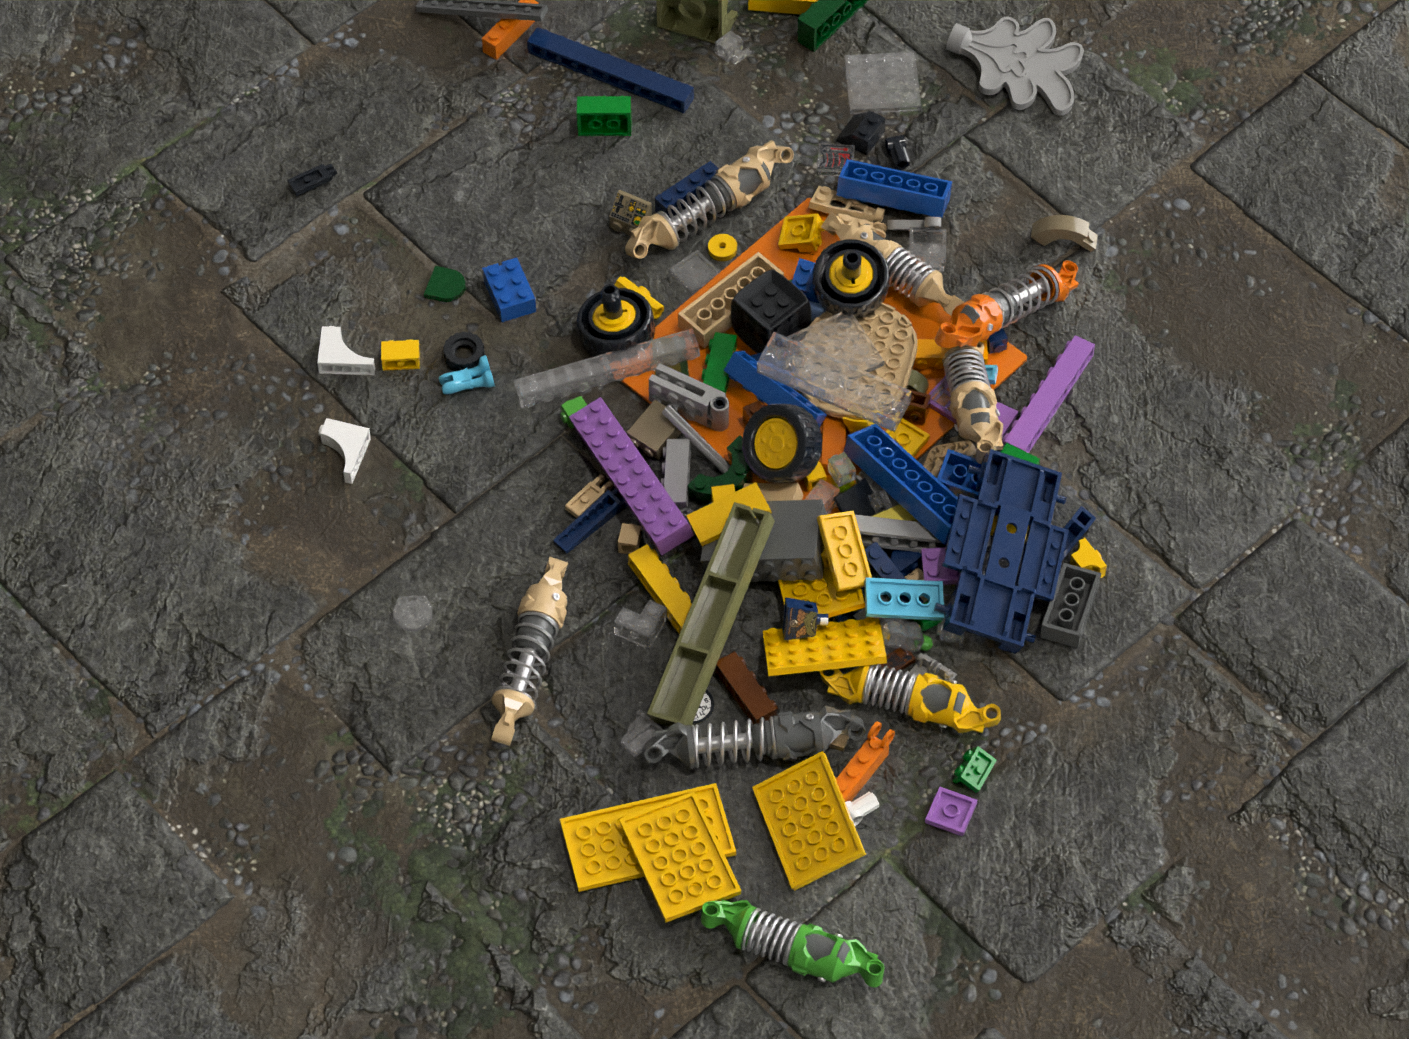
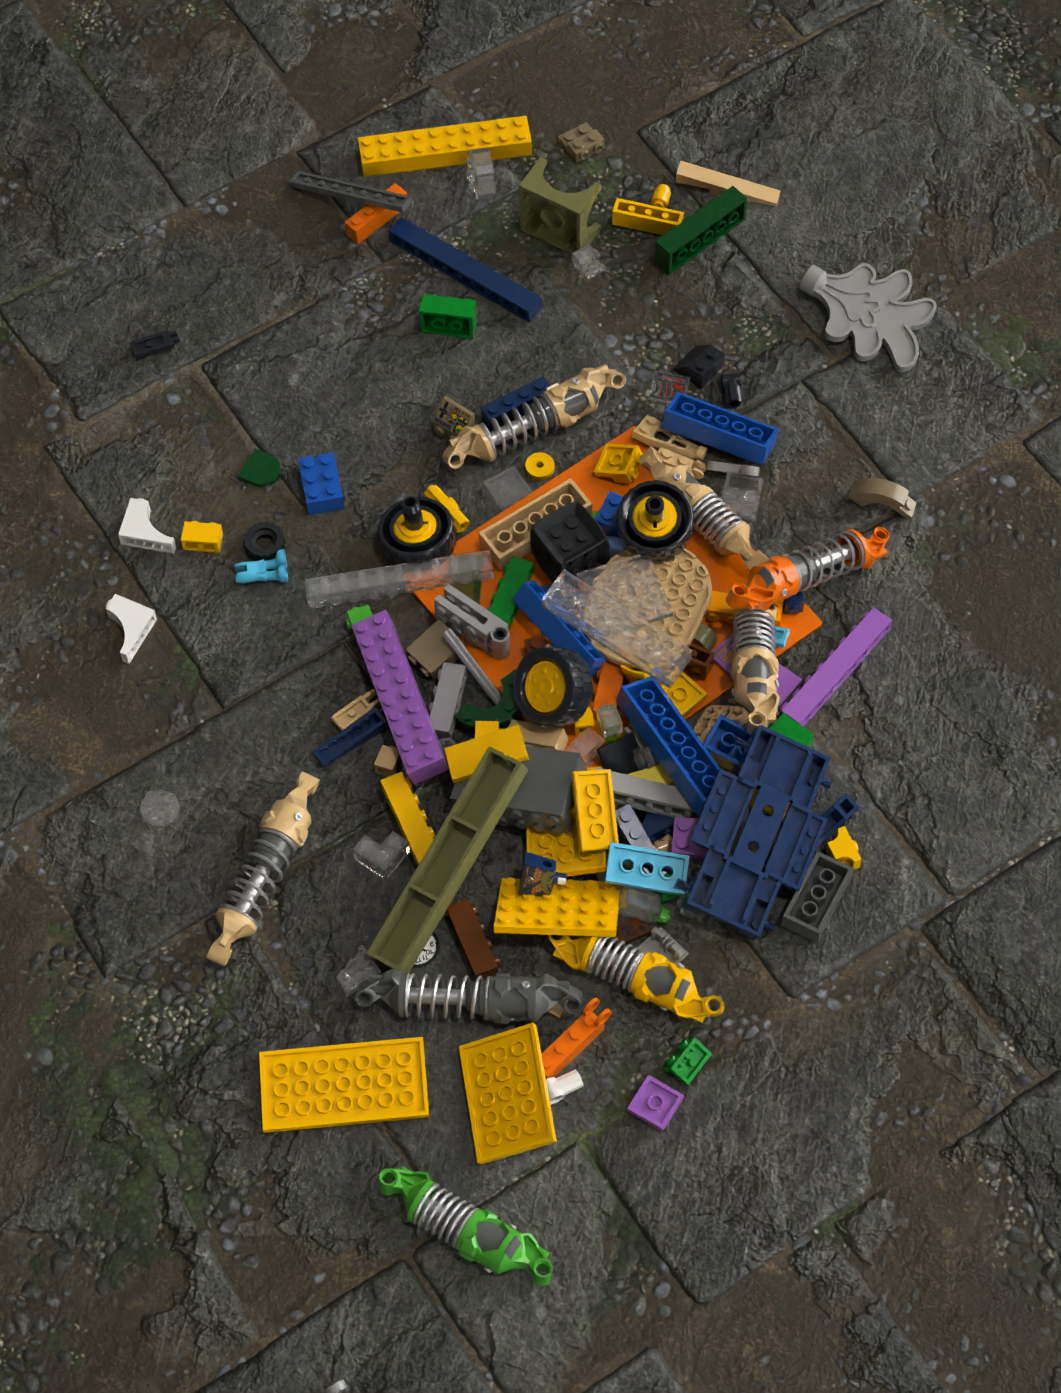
camera: 10 degrees right, 5 degrees up
(679, 856) = (370, 1113): yellow plate -> none
(882, 82) = (730, 315): clear plate -> none

